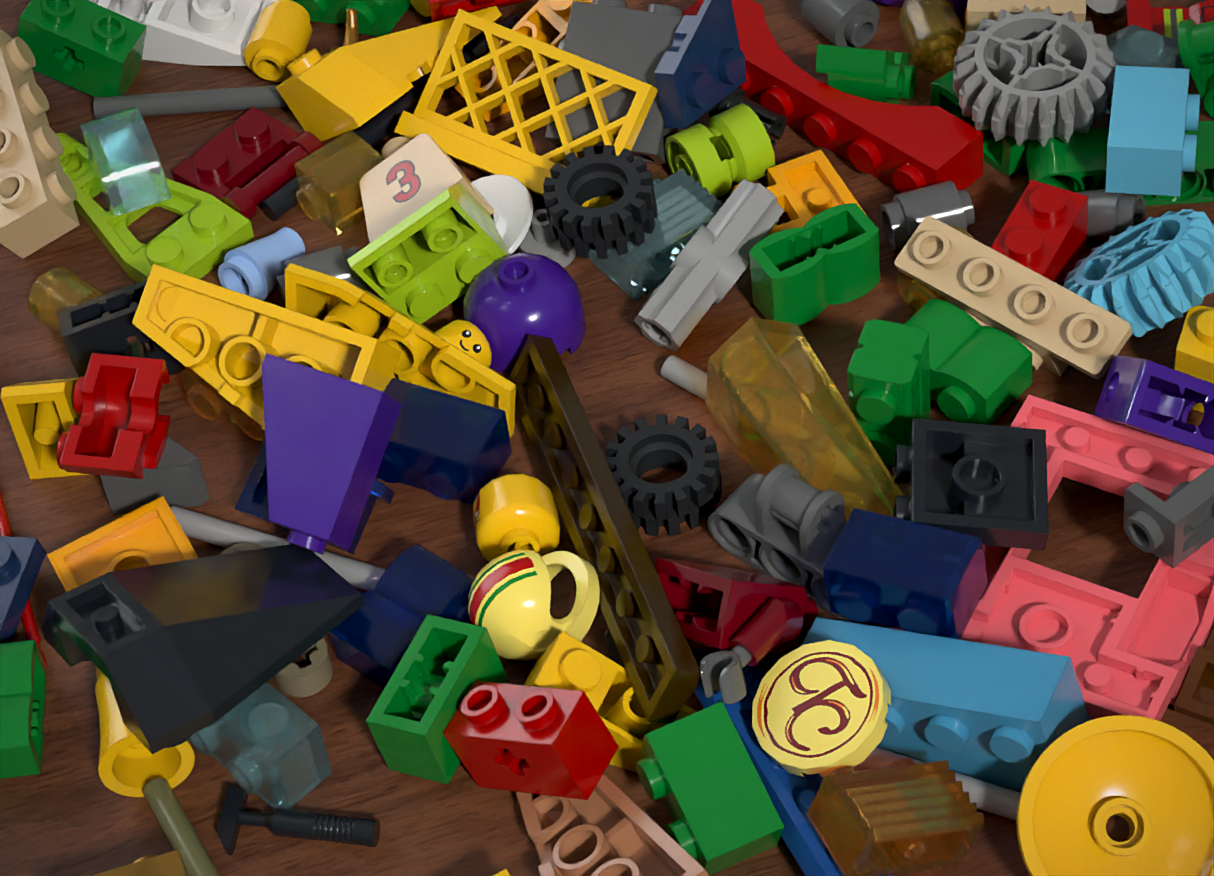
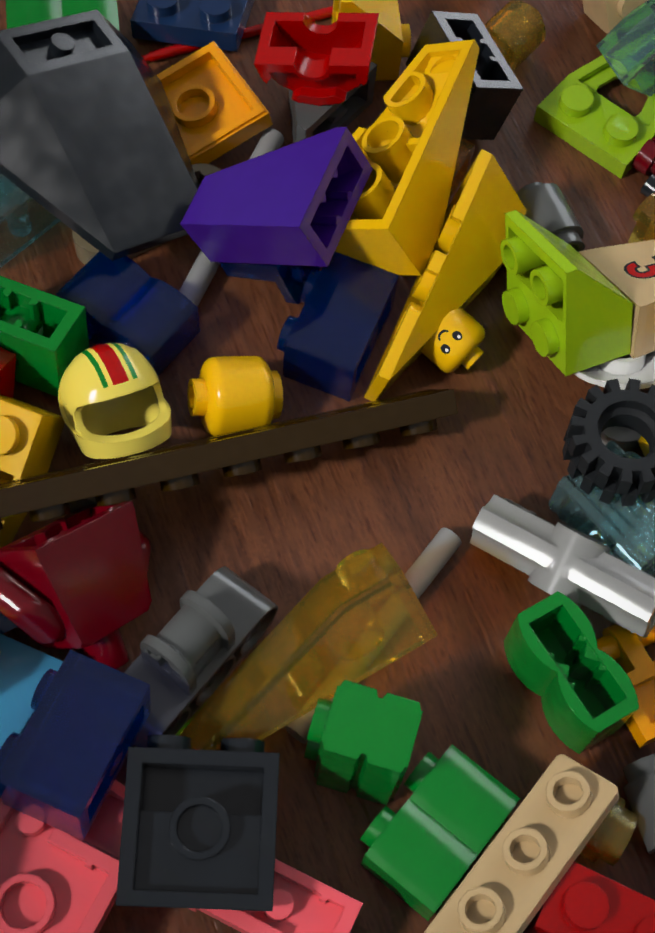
camera: 75 degrees right, 15 degrees up
(255, 265) = (573, 174): light blue cone -> none
(521, 298) = (513, 399): dark purple cylinder -> none
(666, 447) = (297, 492): black tyre -> none

